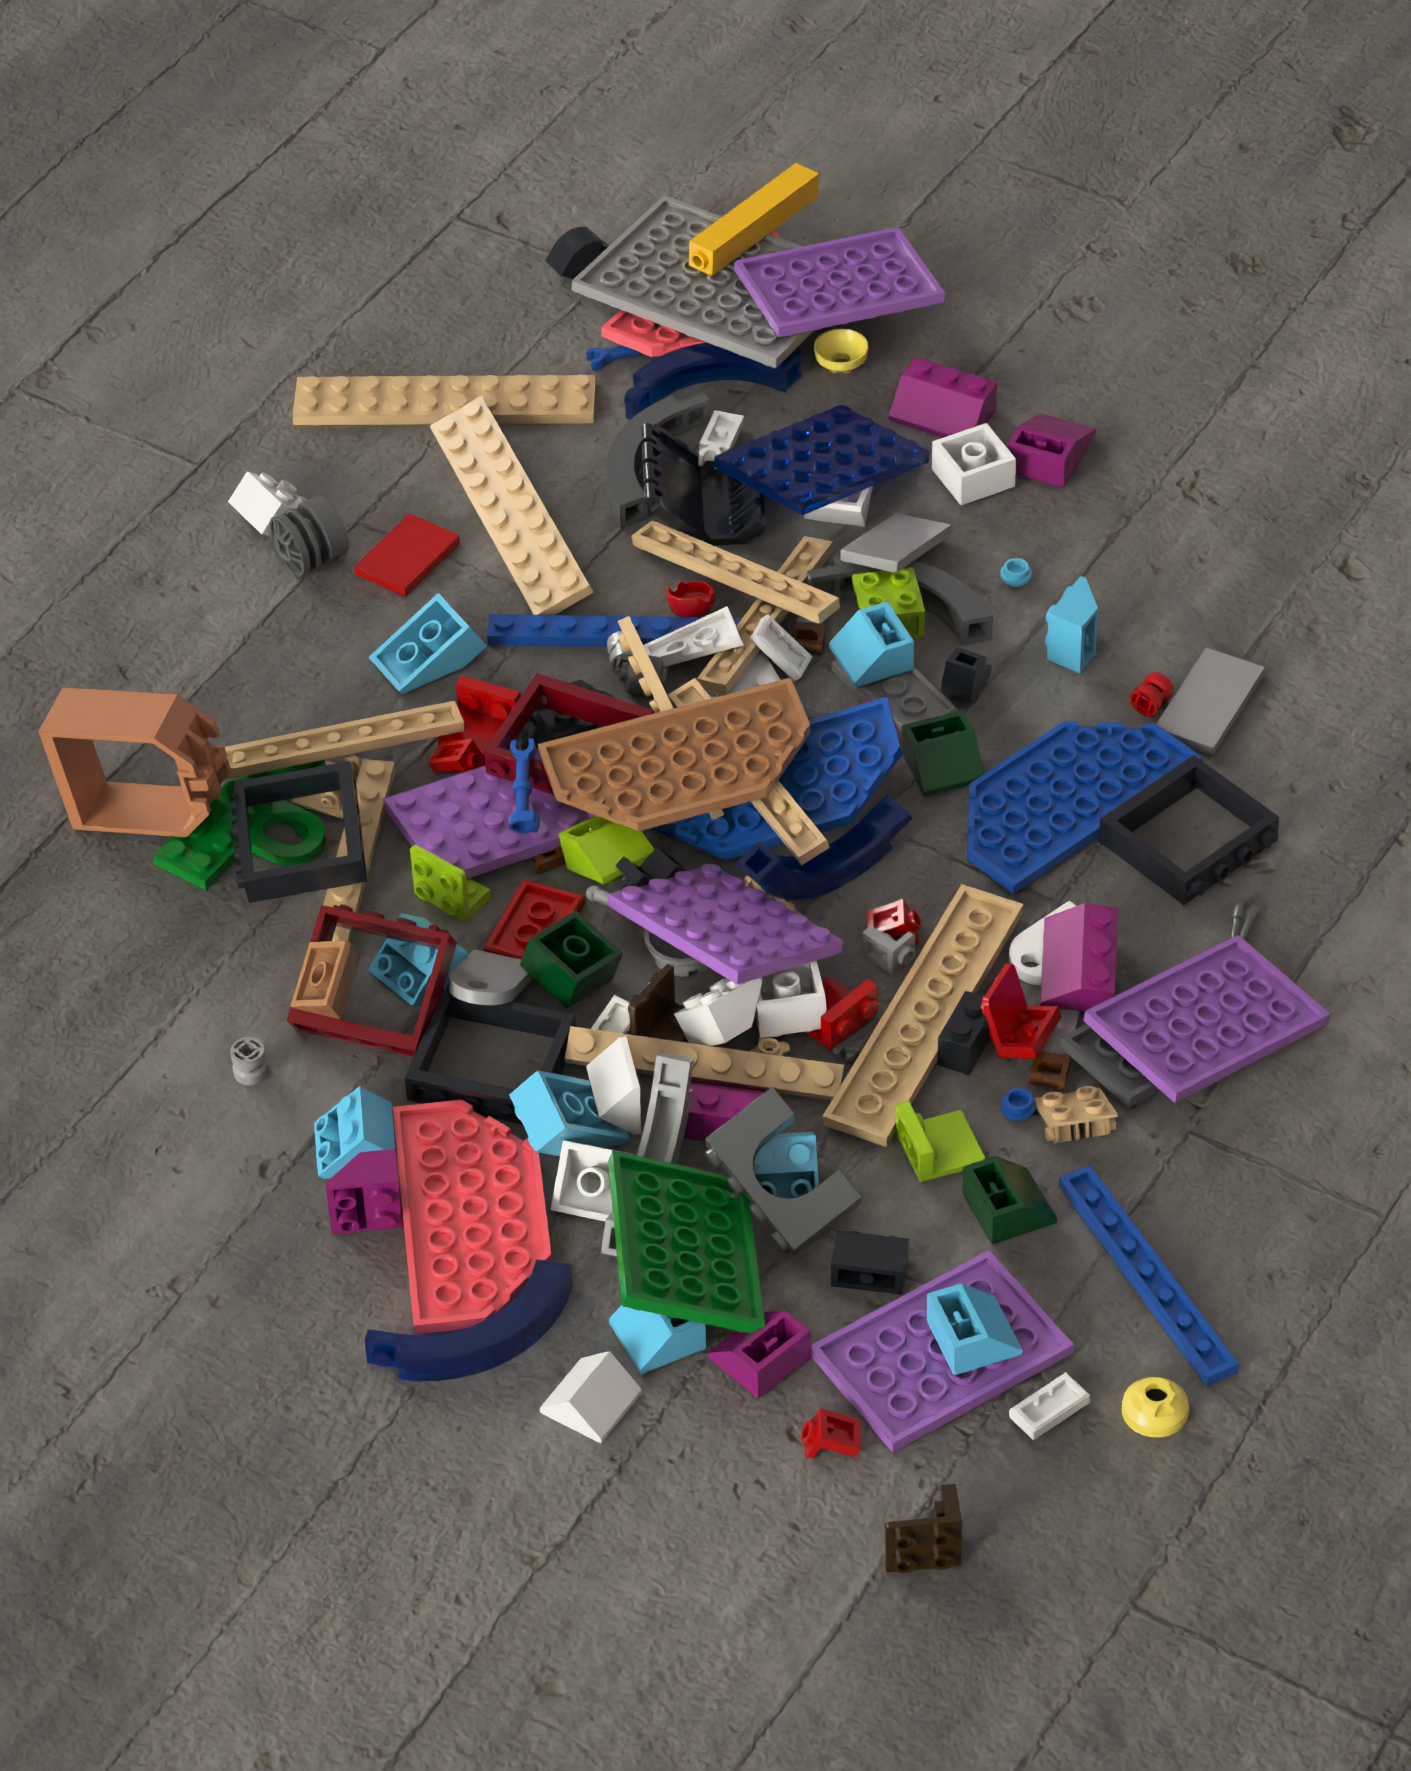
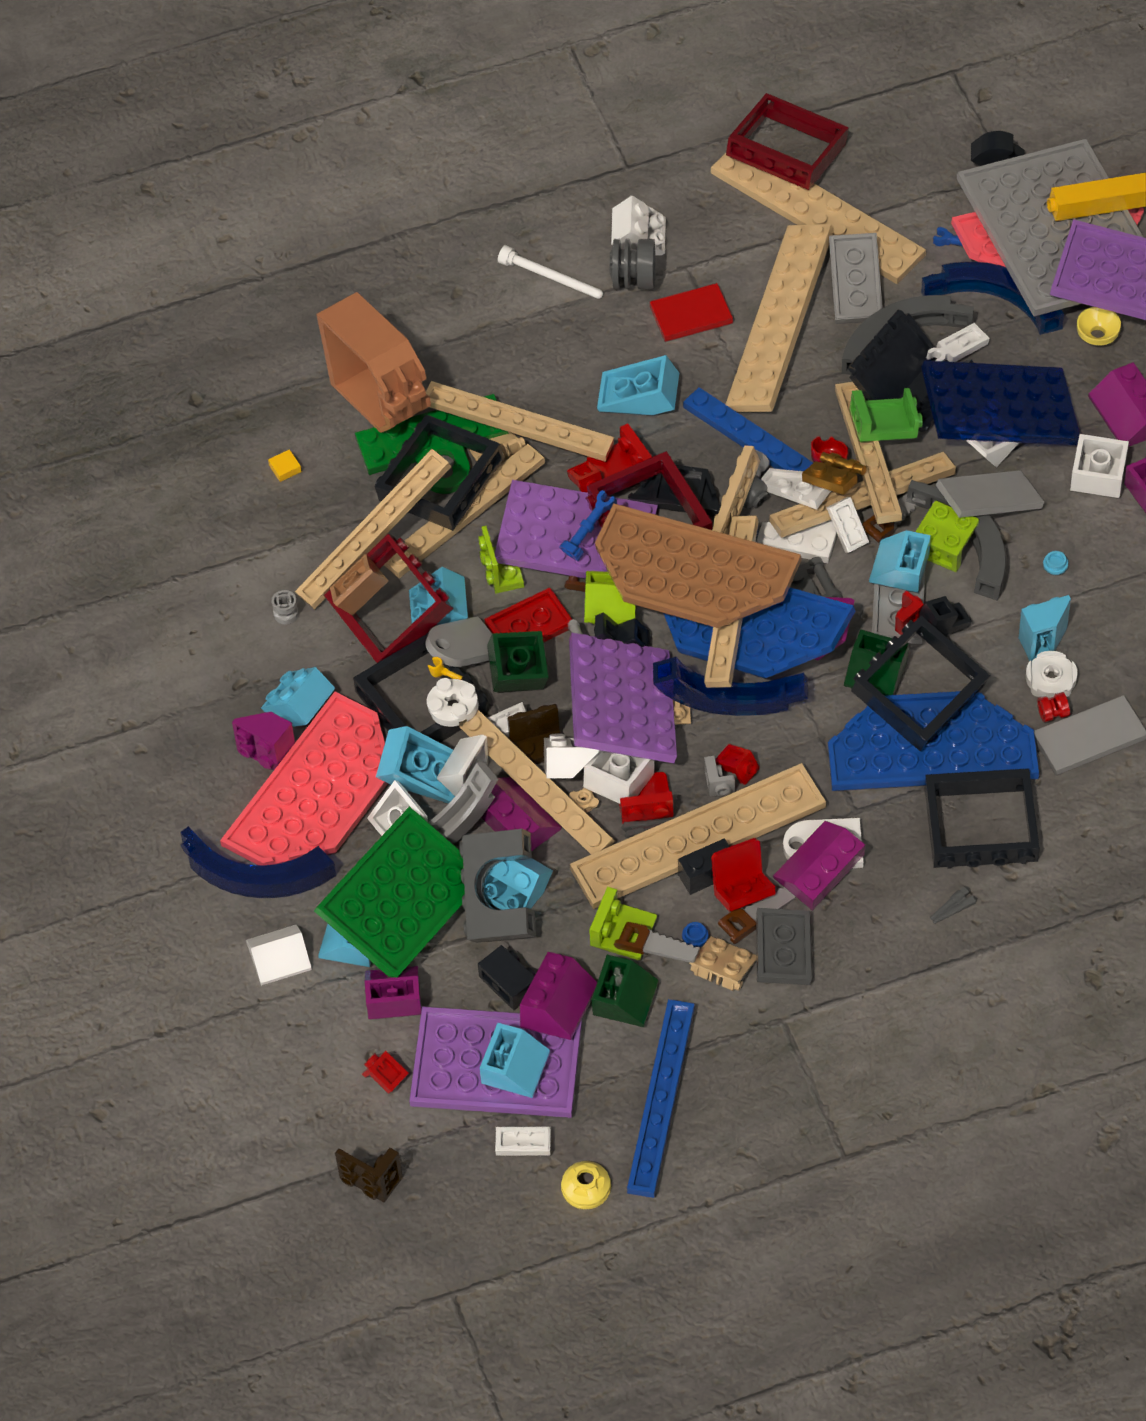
camera: 40 degrees right, 10 degrees up
(101, 931) = (284, 465): none -> yellow tile
(157, 605) = (509, 257): none -> white piece
(284, 921) = (374, 527): none -> tan plate
(356, 370) = (778, 163): none -> dark red window
(494, 1013) = (440, 670): none -> yellow hand
(542, 1018) = (448, 690): none -> white plate
(551, 433) = (855, 276): none -> light grey tile
(725, 530) = (885, 418): none -> bright green panel
(728, 602) = (830, 477): none -> pearl gold plate
(926, 683) = (910, 611): none -> red bracket
(946, 1242) = (557, 997): none -> magenta slope
(993, 1133) = (654, 944): none -> piece
(1007, 777) = (891, 713): none -> black window
(1117, 683) = (1040, 667): none -> white plate
(1206, 1018) = (859, 955): medium lavender plate -> none

